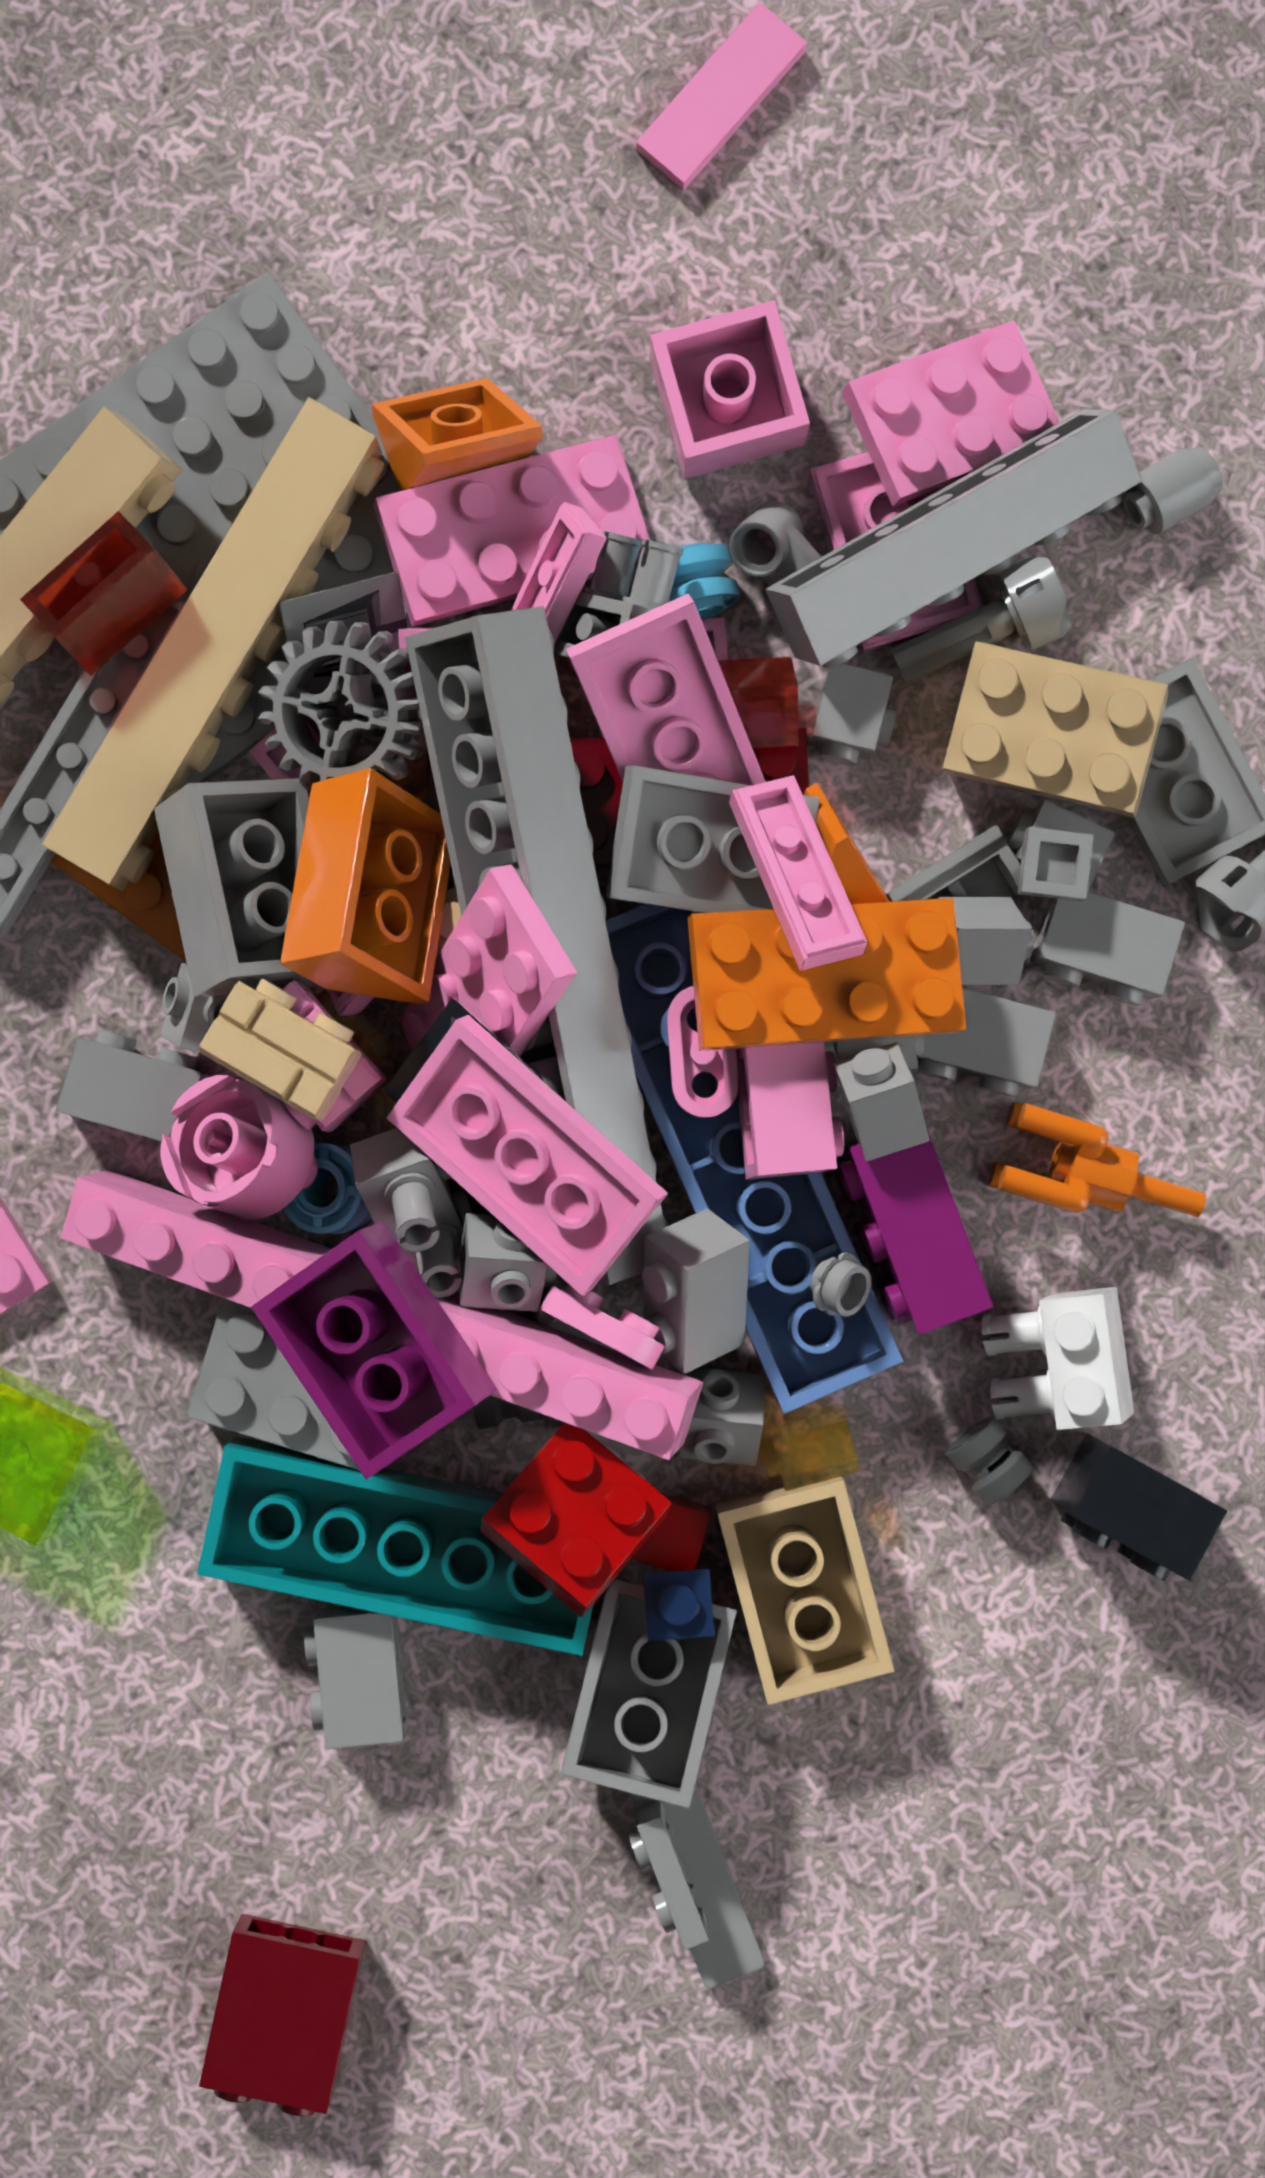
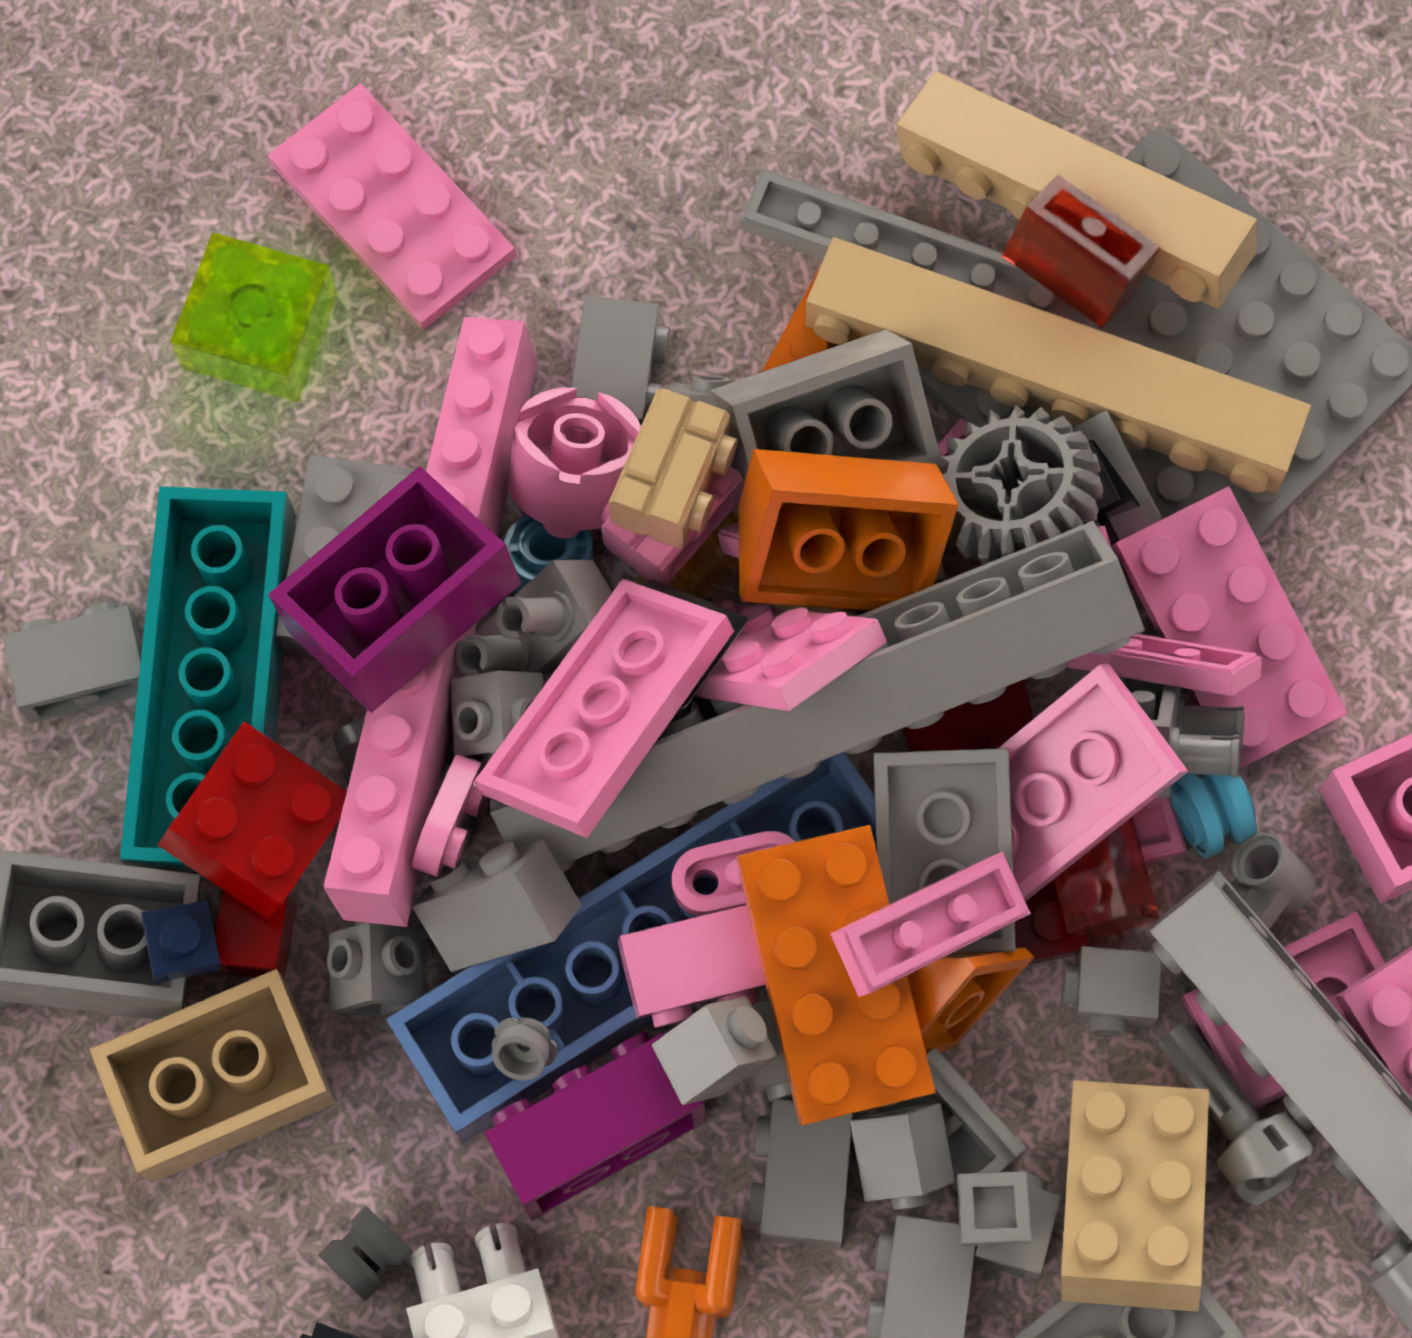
camera: 90 degrees right, 15 degrees down
(453, 432) = (1313, 554): orange slope -> none
(809, 1447) = (355, 1065): clear yellow brick -> none

